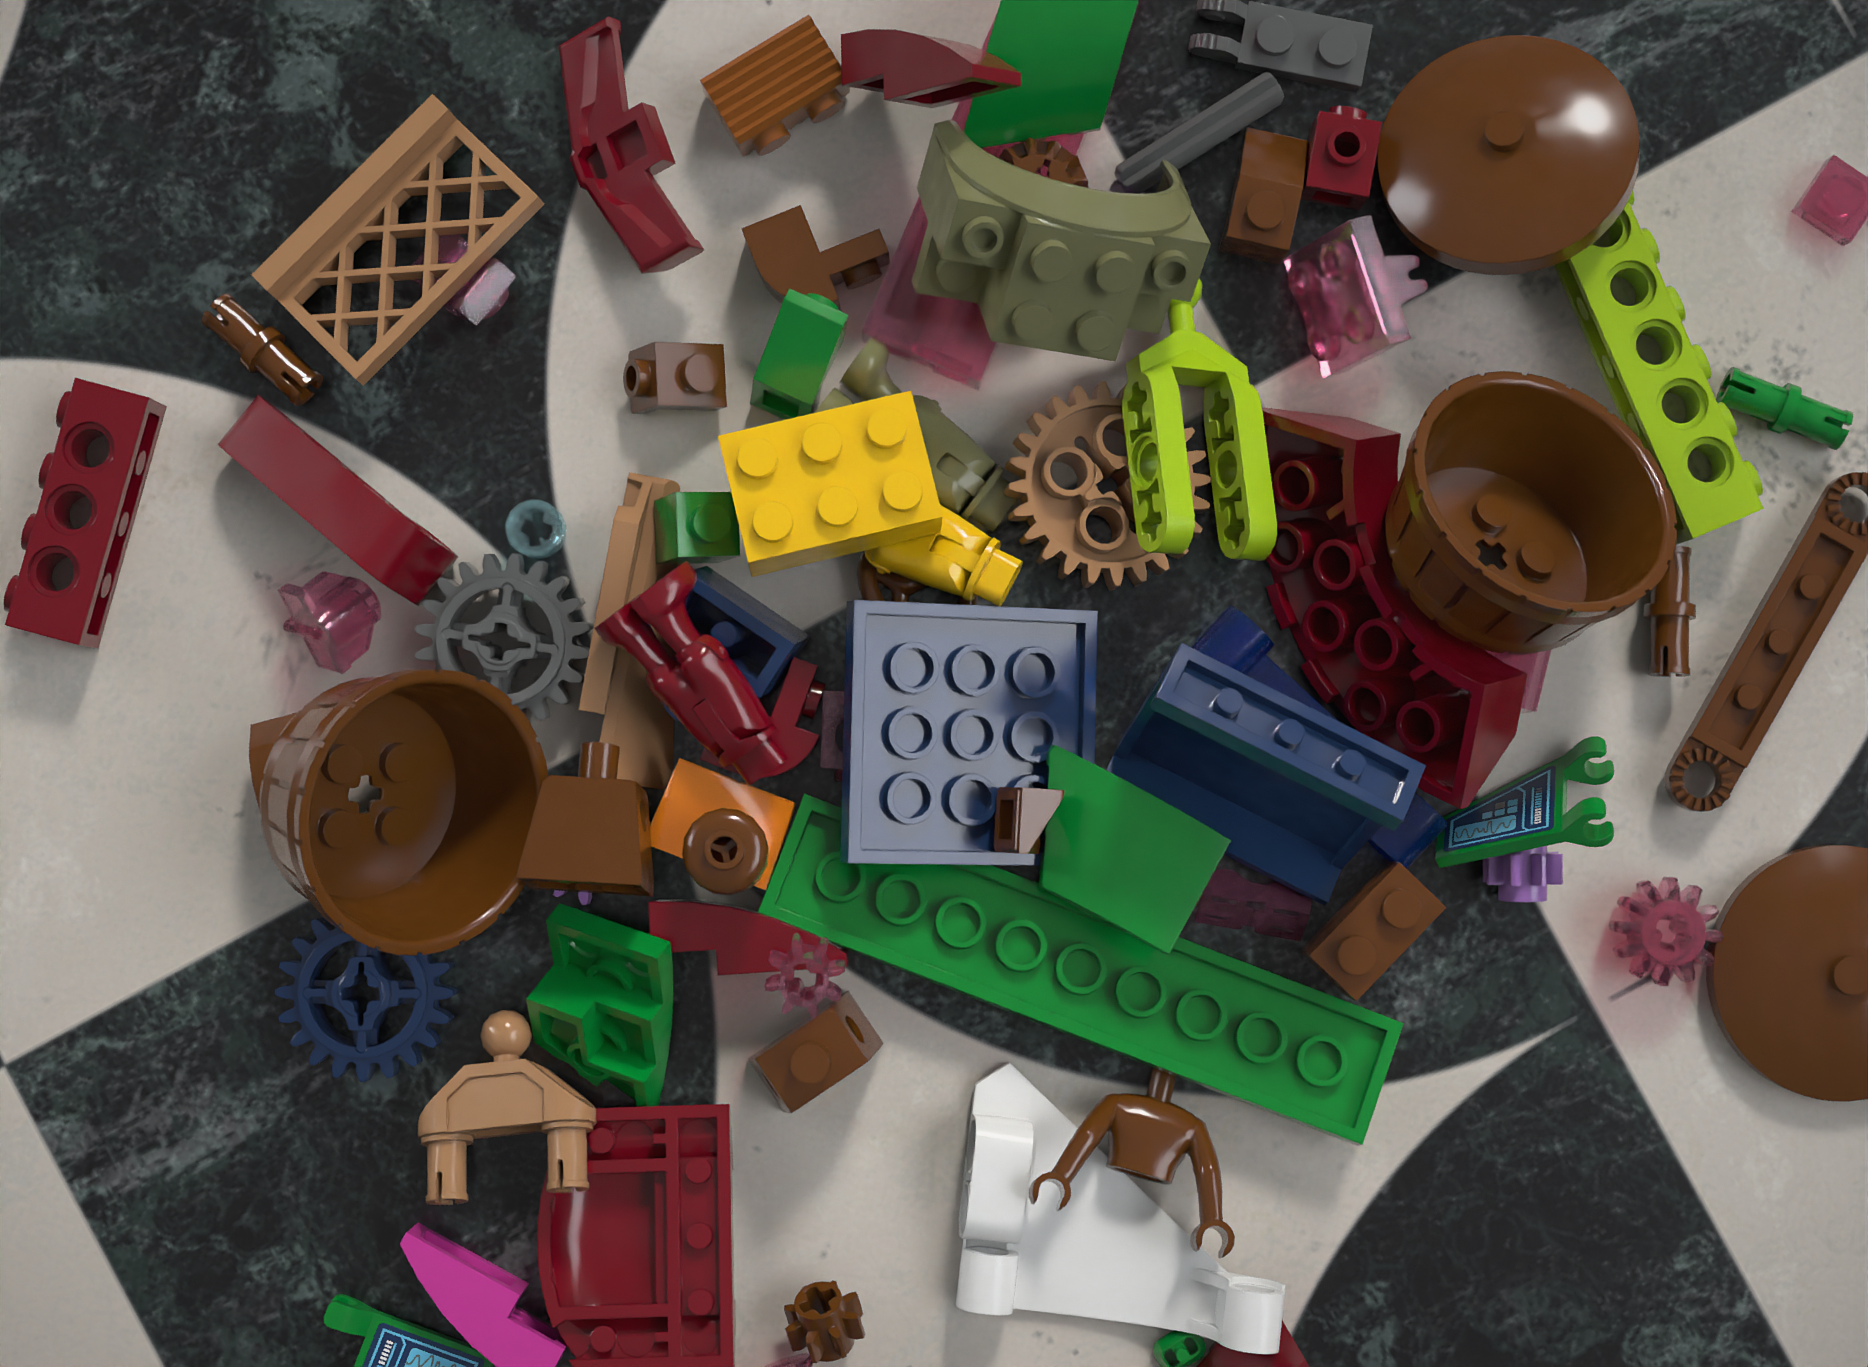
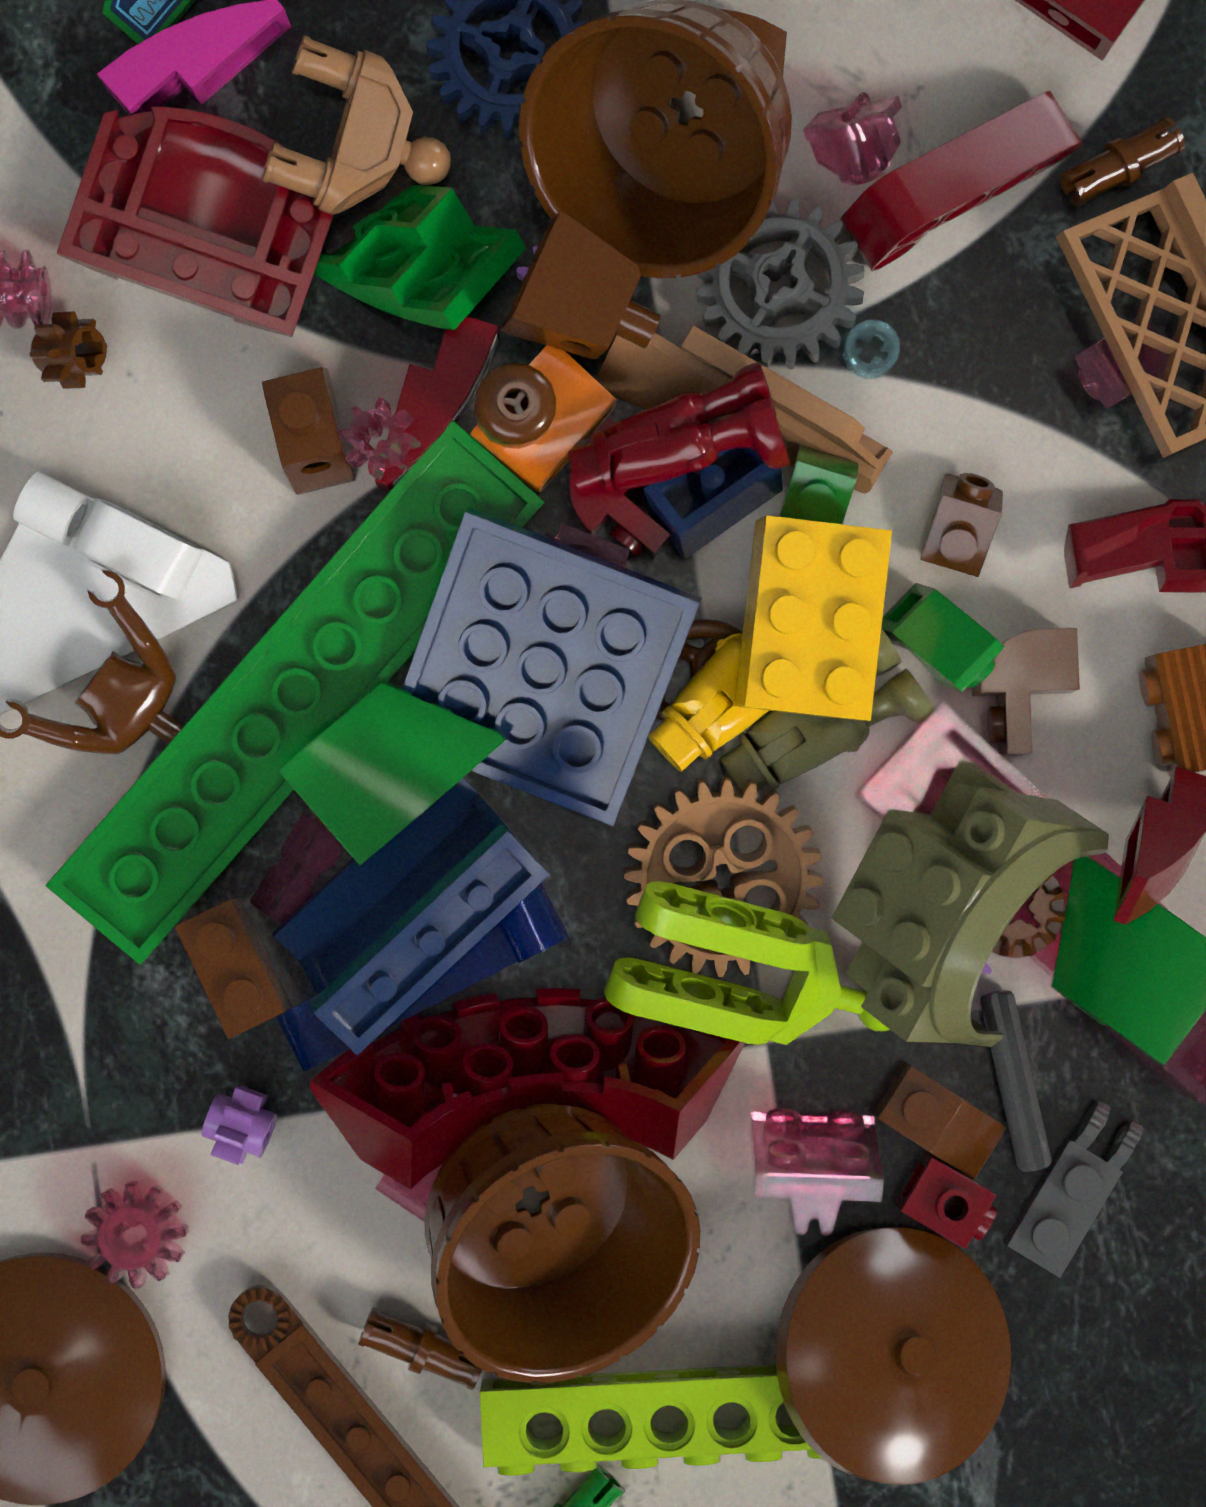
camera: 110 degrees right, 0 degrees up
(1022, 817) = (448, 685): slope -> none
(1532, 811) = (286, 1151): flag -> none

